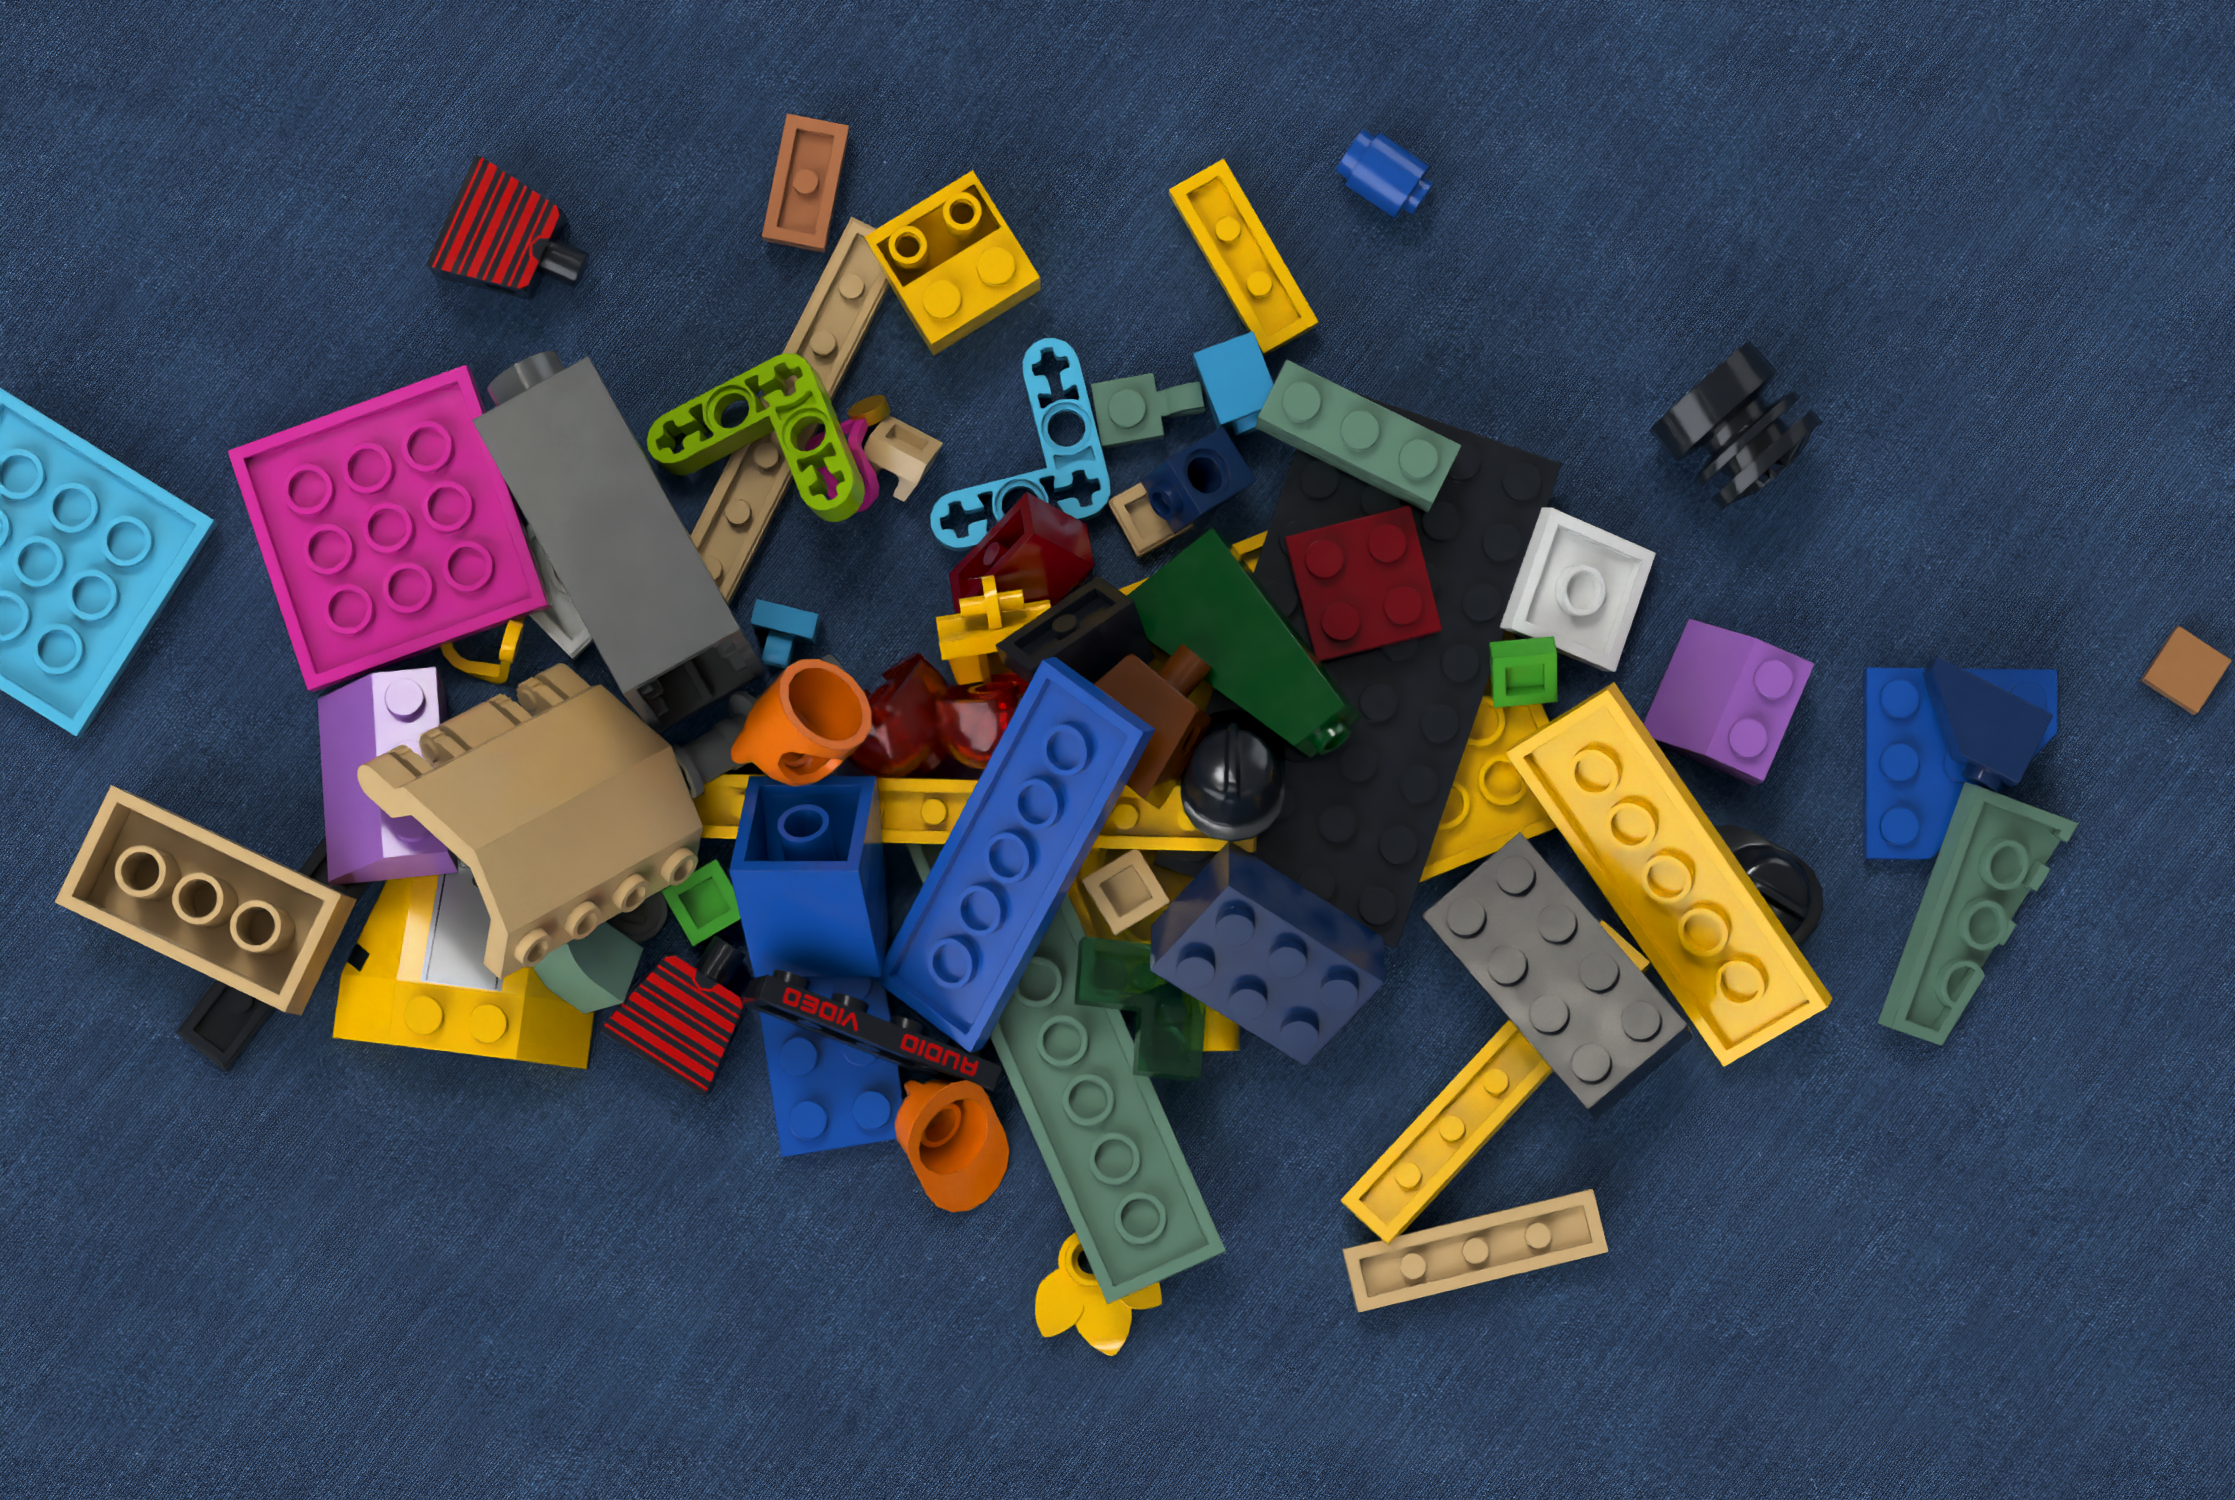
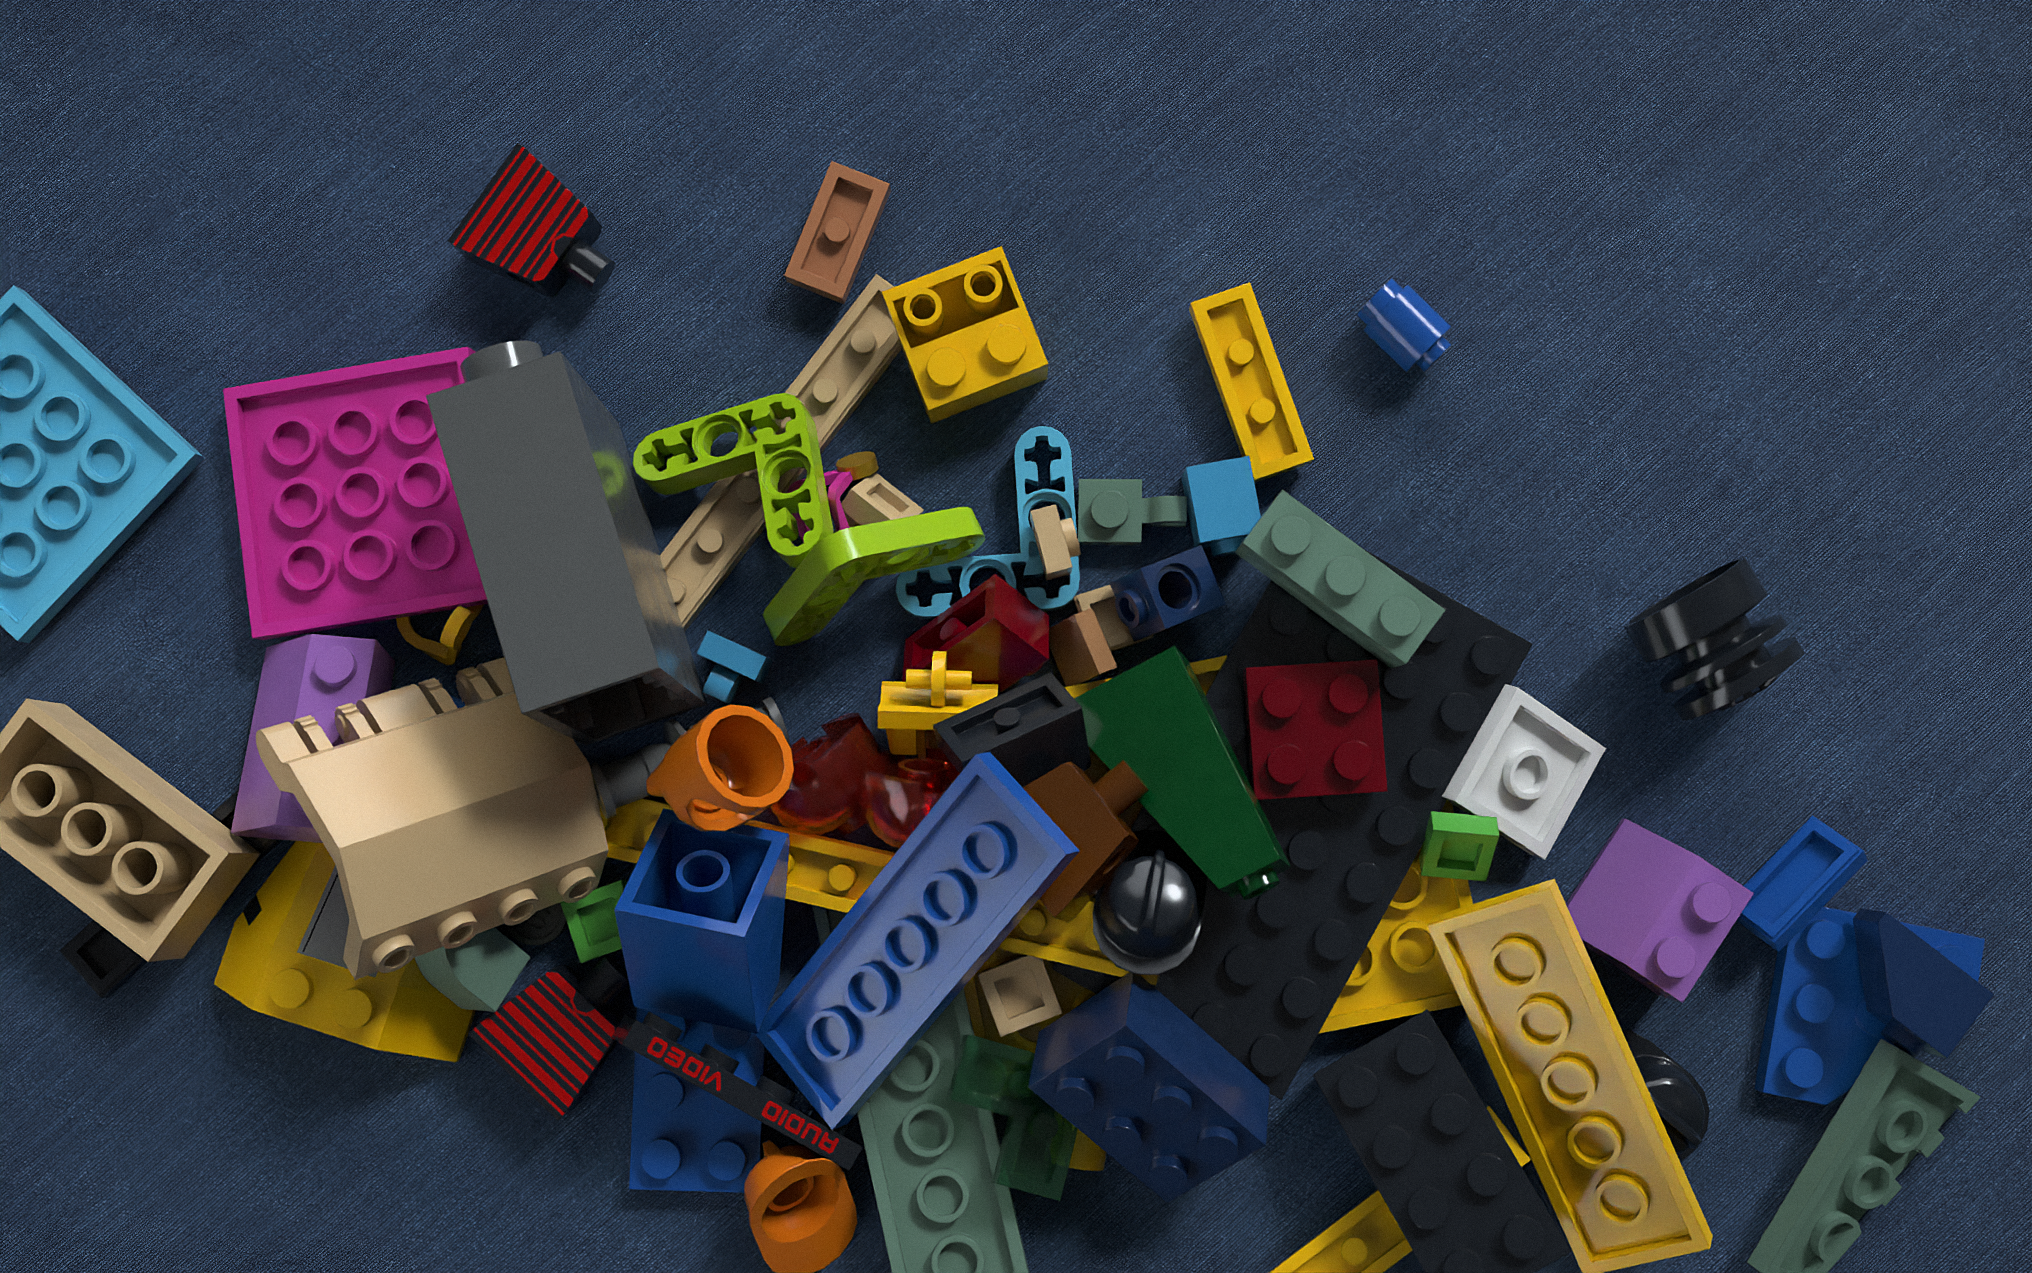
camera: 15 degrees right, 0 degrees up
(893, 496) = (860, 553): none -> lime beam
(1079, 450) = (1055, 541): none -> tan plate
(1123, 550) = (1080, 648): none -> medium nougat tile
(1863, 649) = (1799, 882): none -> blue tile

